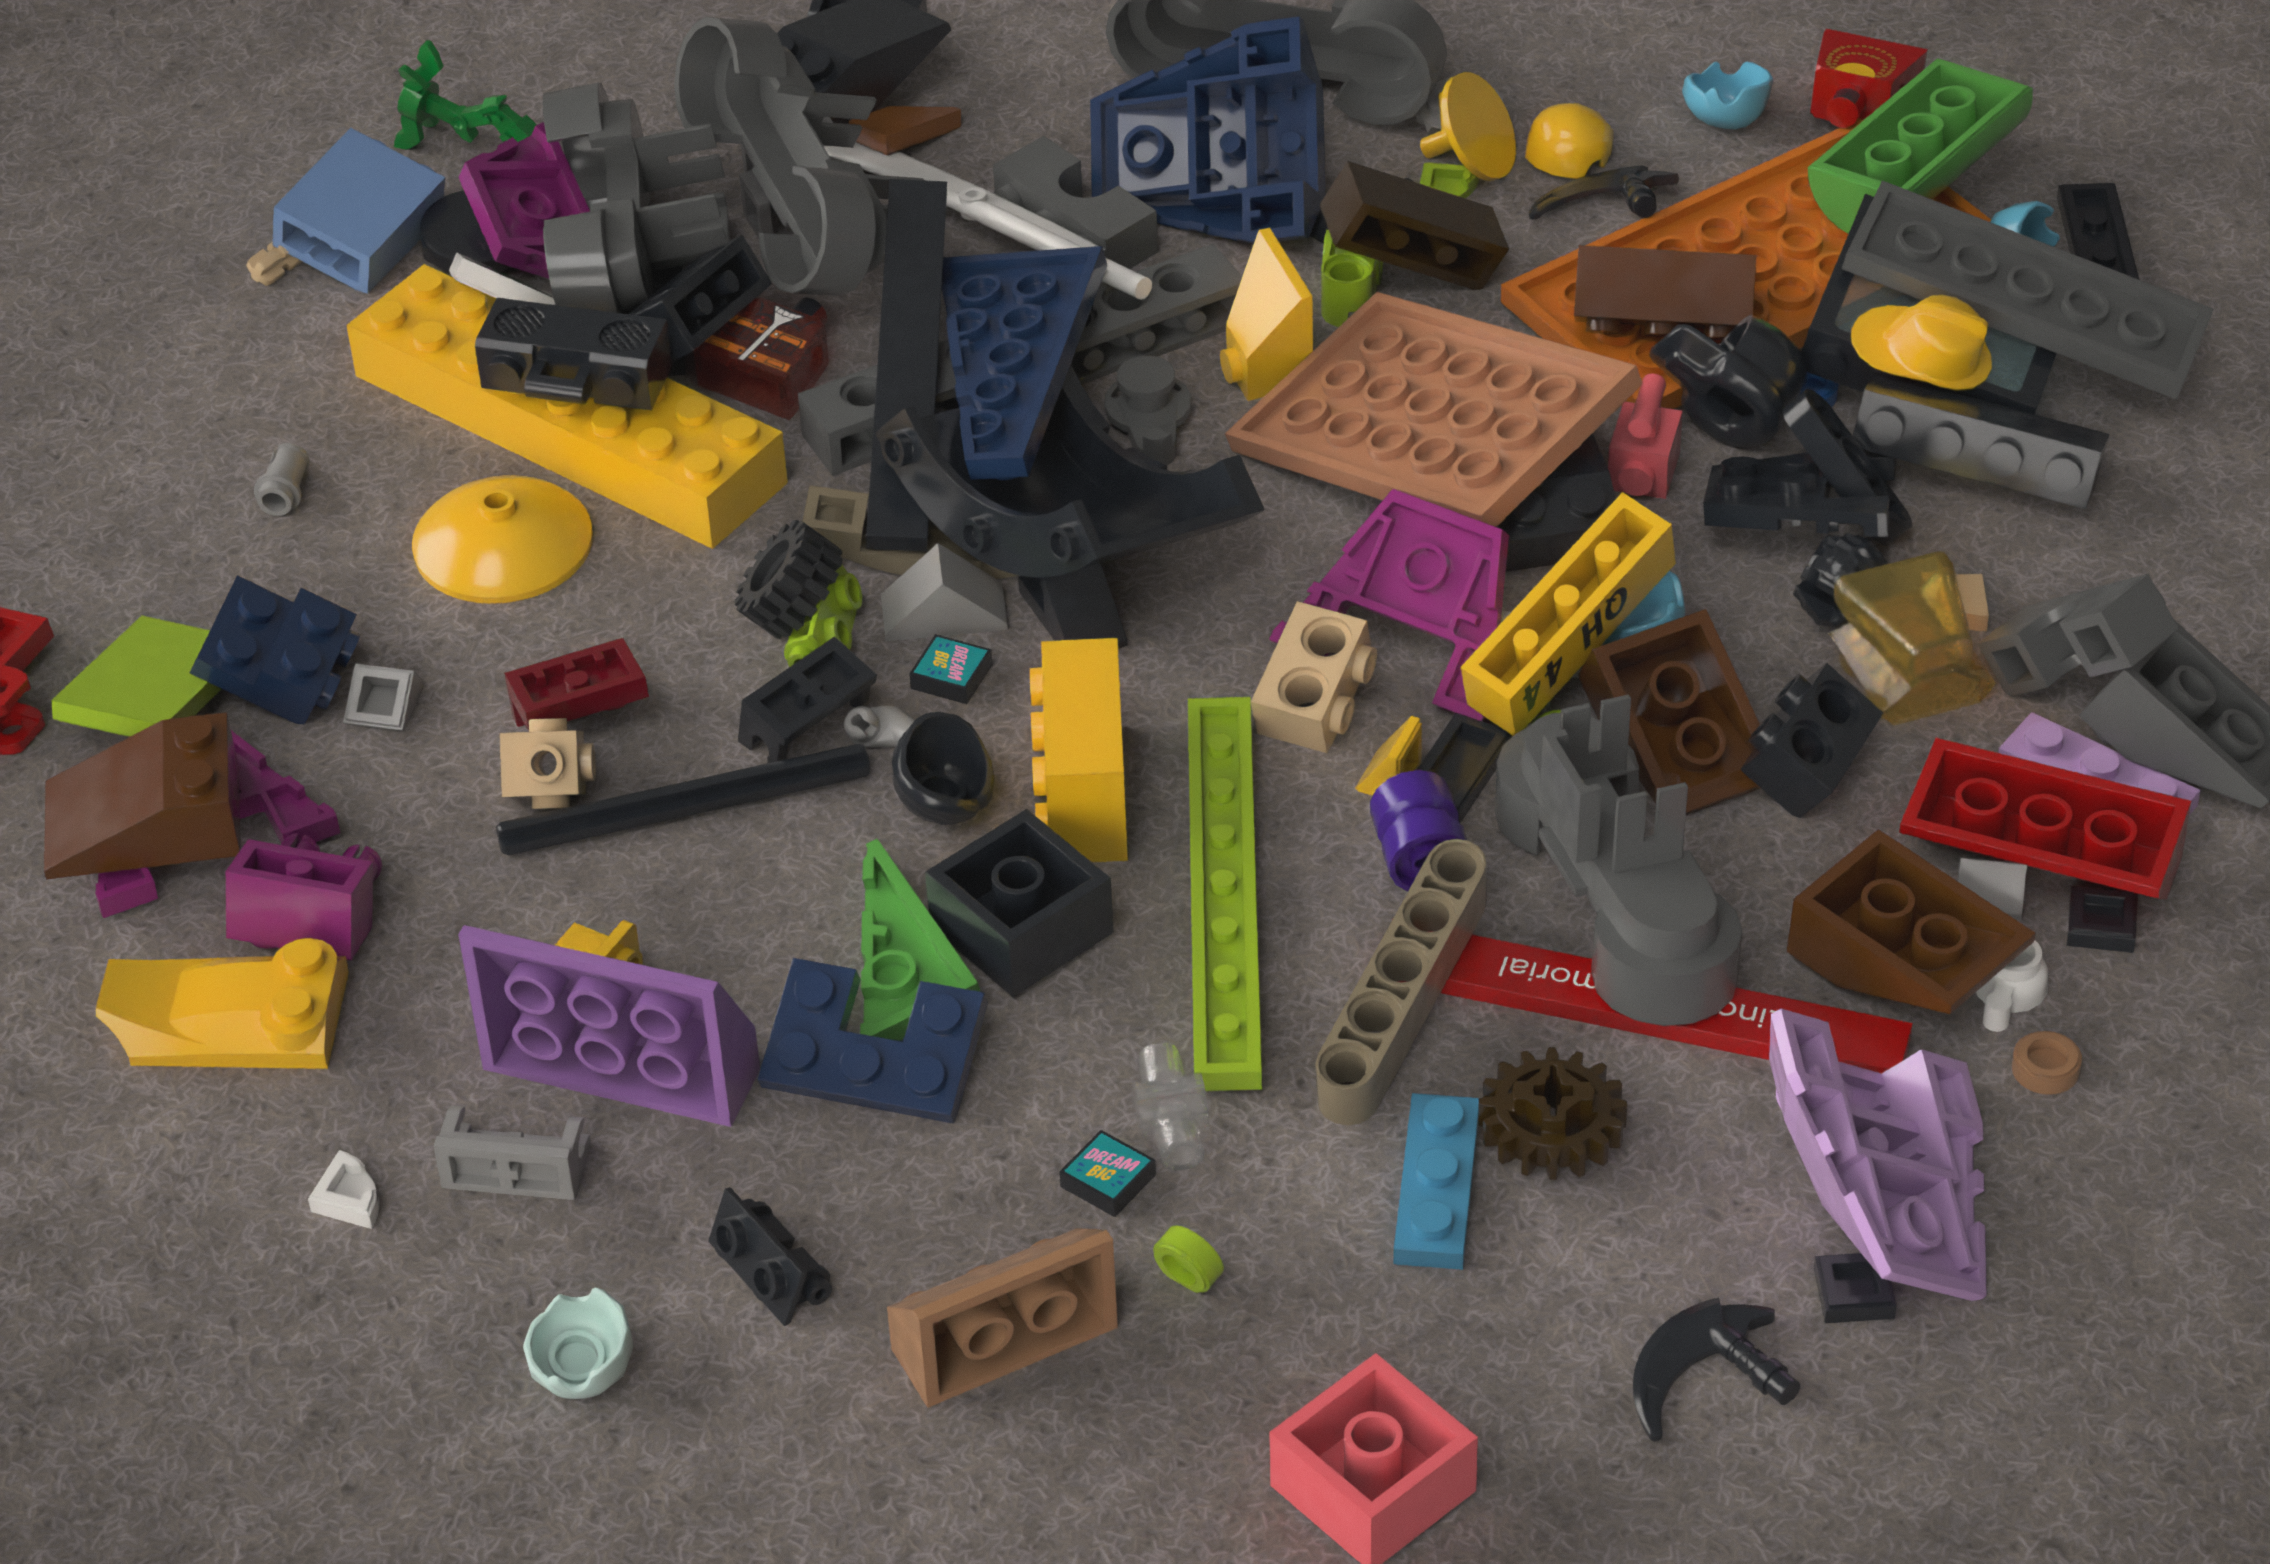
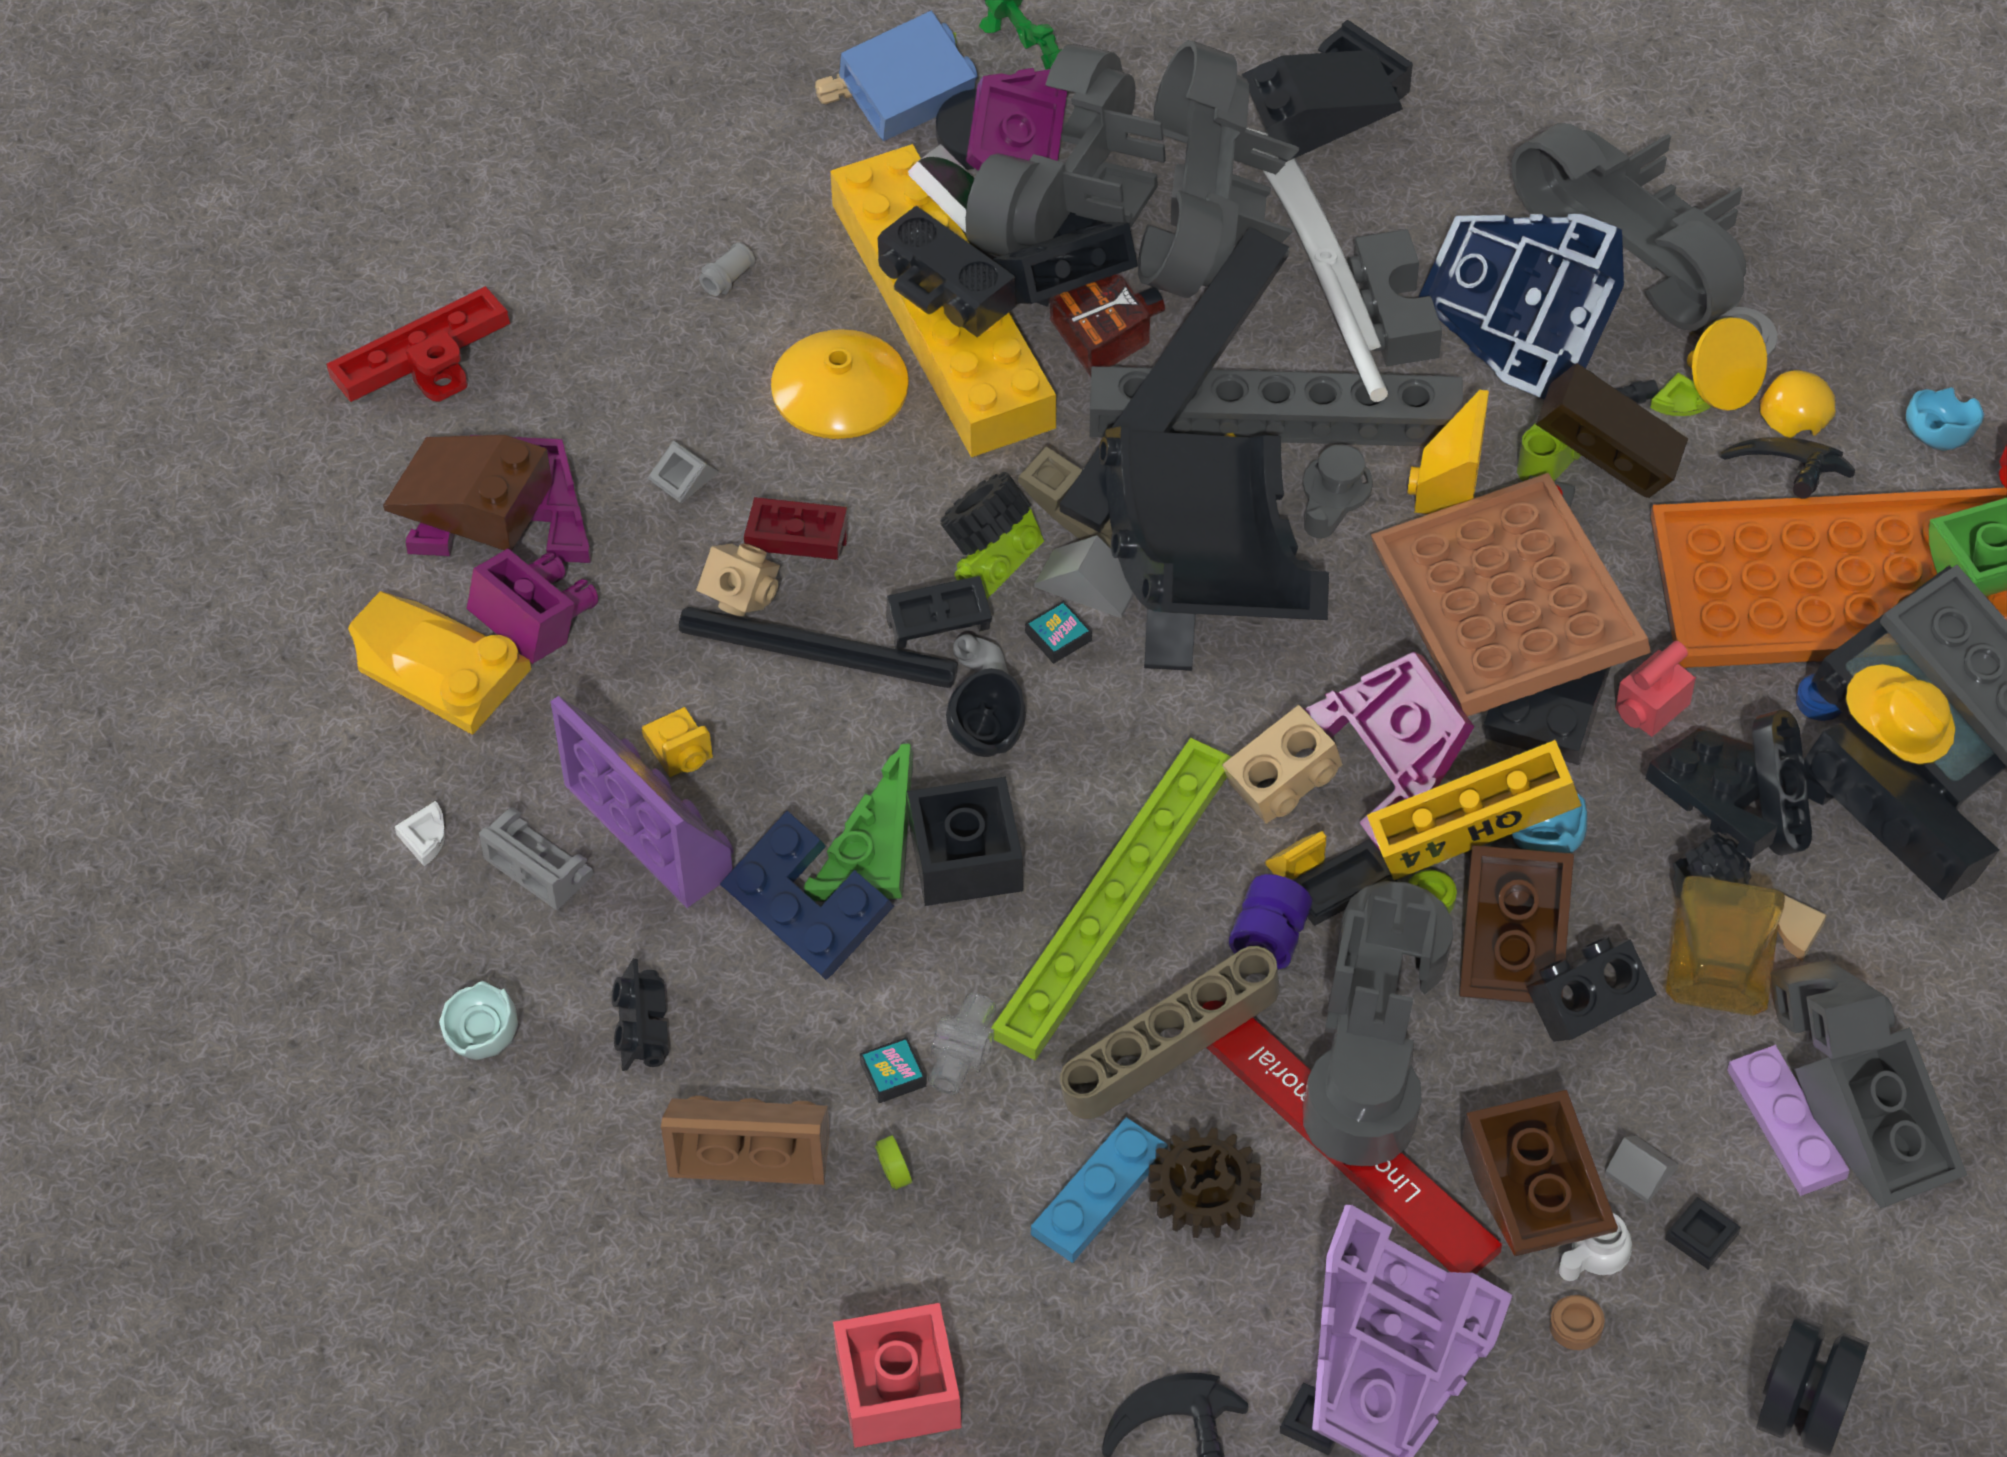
camera: 30 degrees right, 10 degrees up
(138, 680) = (543, 389): lime tile -> none
(277, 649) = (631, 404): dark blue plate -> none
(905, 126) = (1329, 170): dark orange tile -> none
(1011, 346) = (1248, 400): dark blue wing -> none
(1081, 746) = (1081, 746): yellow brick -> none
(1663, 290) = (1754, 572): reddish brown slope -> none
(1735, 386) = (1759, 677): black piece -> none
(2048, 818) = (1701, 1145): red slope -> none

